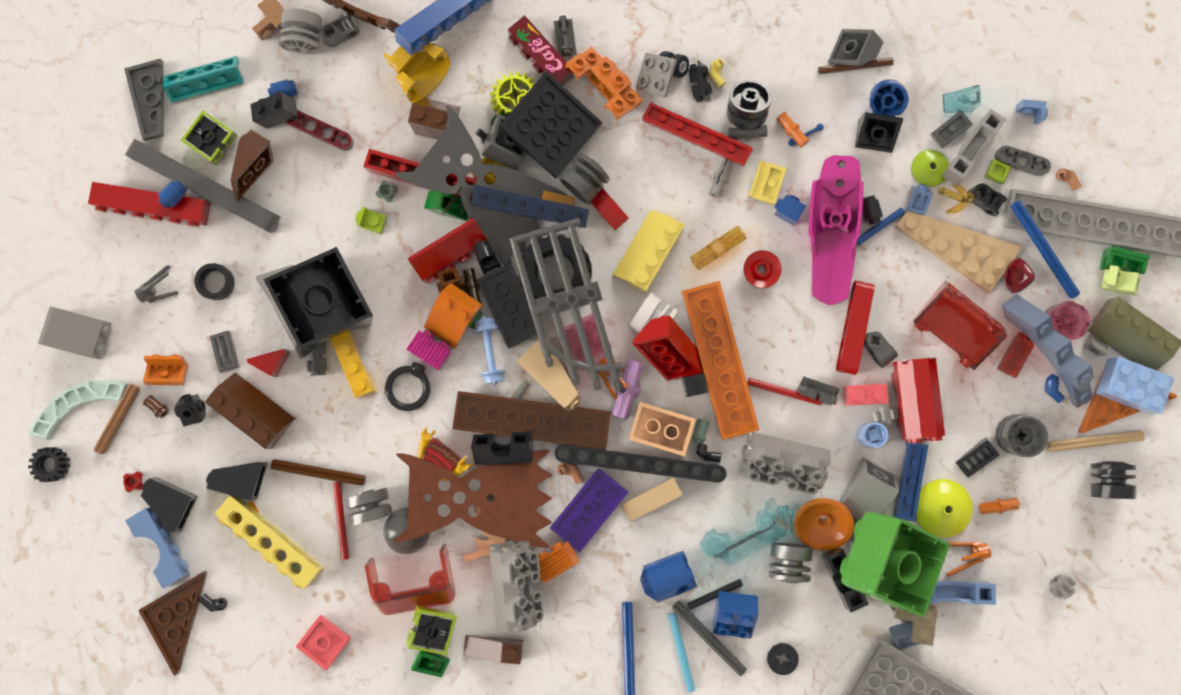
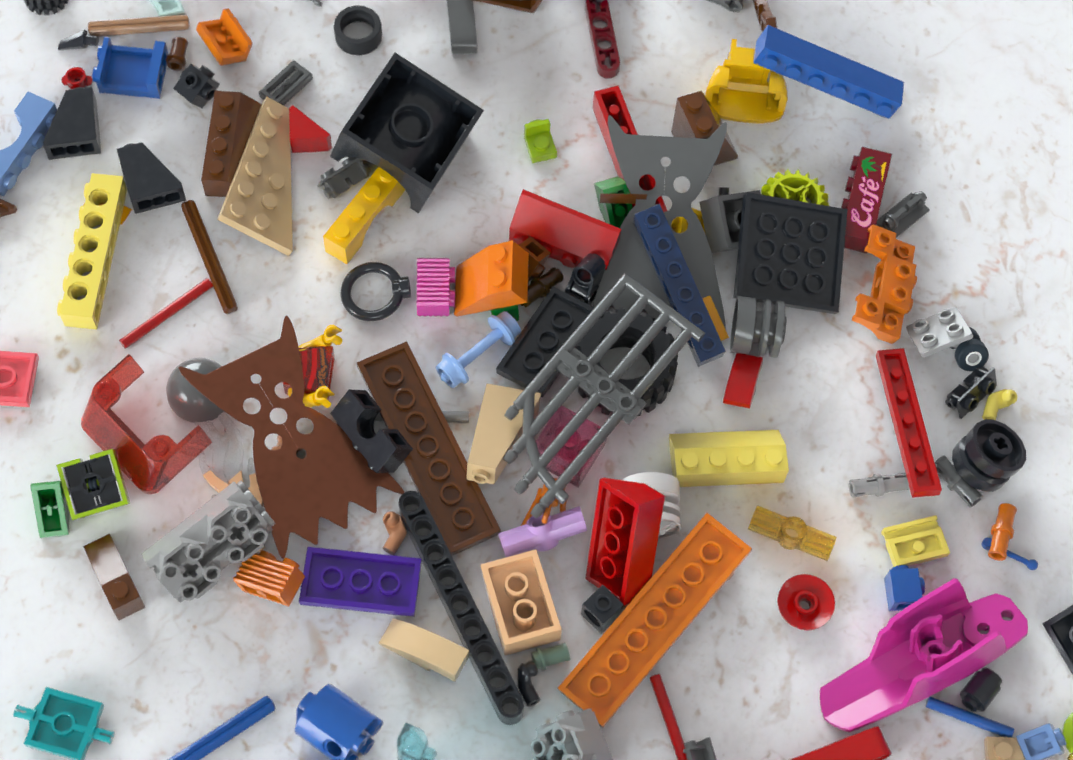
camera: 50 degrees right, 20 degrees down
(102, 463) = (78, 41): none -> black bar
(148, 443) = (130, 69): none -> blue panel
(295, 415) = (261, 188): none -> tan wing
(368, 506) = (203, 325): flat silver wheel -> none
(386, 186) = (584, 132): sand green plate -> none

